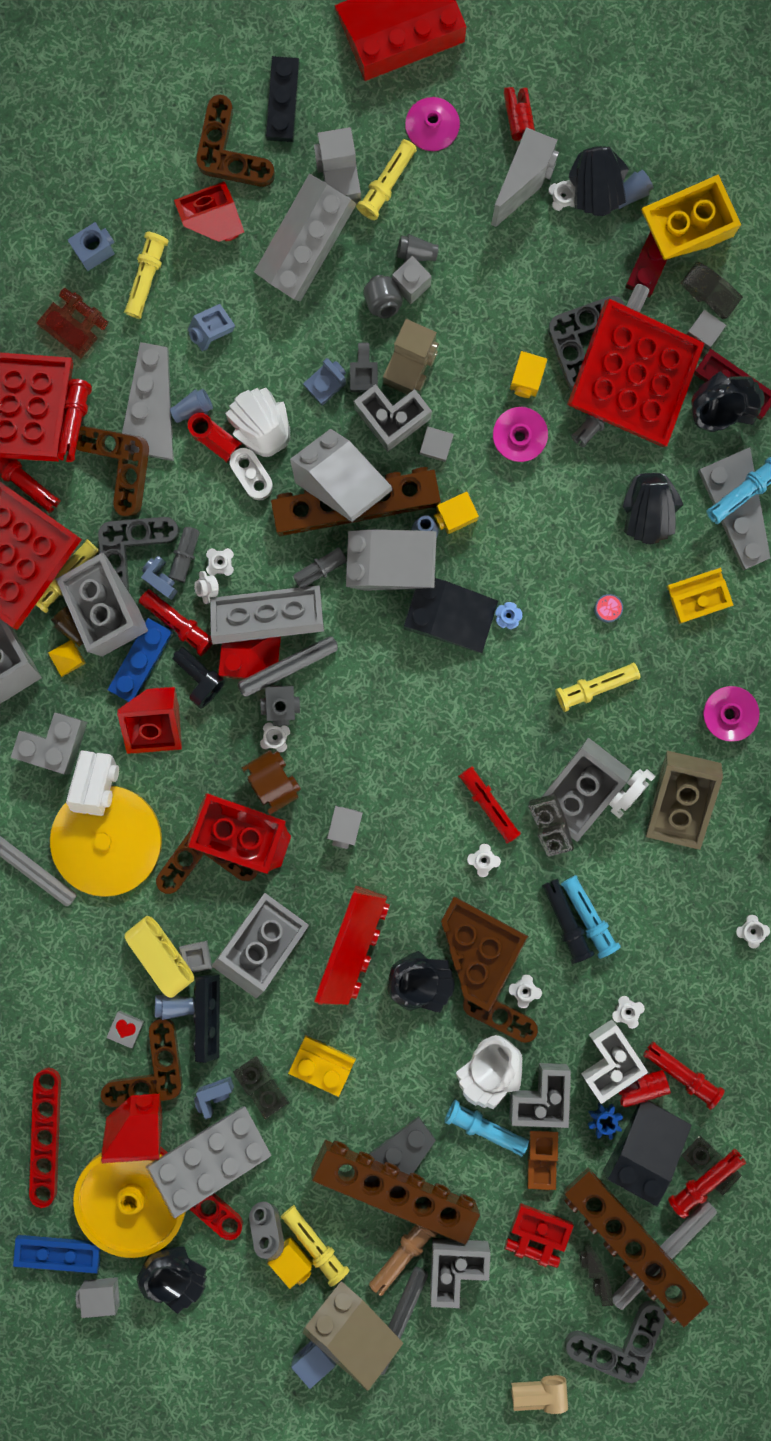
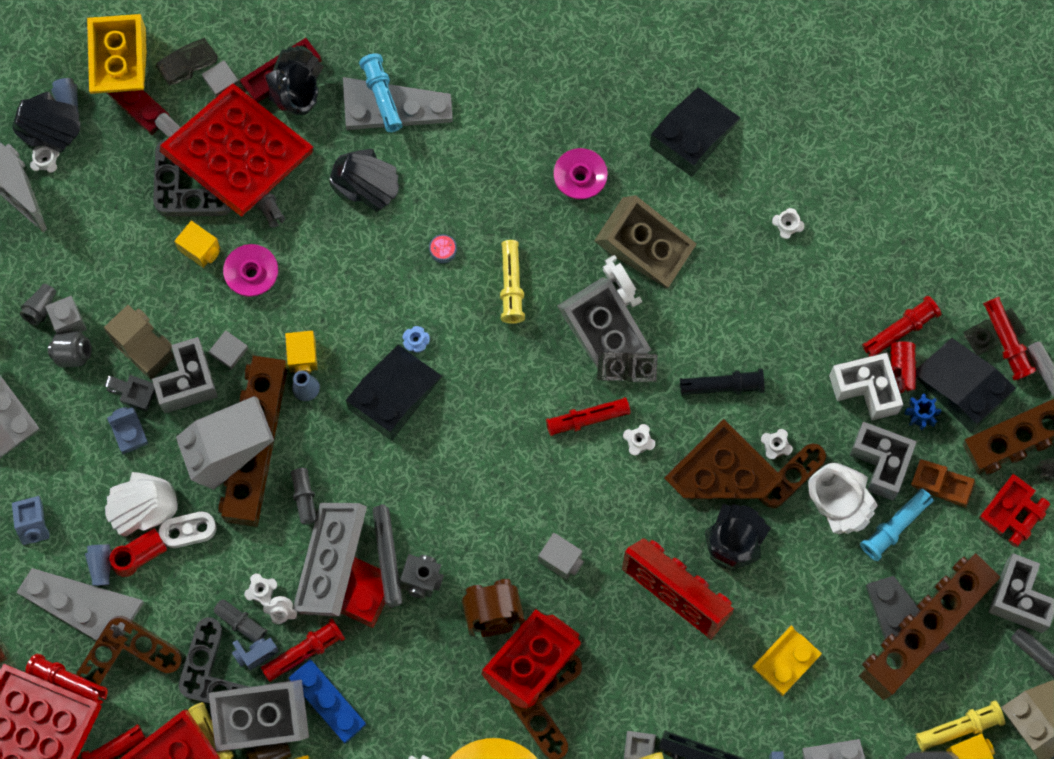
camera: 75 degrees left, 15 degrees down
(151, 721) = (392, 707): red slope -> none
(209, 682) = (373, 639): black piece -> none
(260, 946) = (650, 679): light grey slope -> none
(261, 1087) = (789, 726): clear smoke slope -> none
(268, 742) = (447, 588): white plate -> none
(391, 559) = (322, 422): light grey slope -> none
(410, 1246) = (989, 634): medium nougat pin -> none
(596, 928) = (738, 359): medium azure pin -> none
(624, 1005) = (819, 357): white plate -> none
(699, 595) = (462, 165): yellow plate -> none

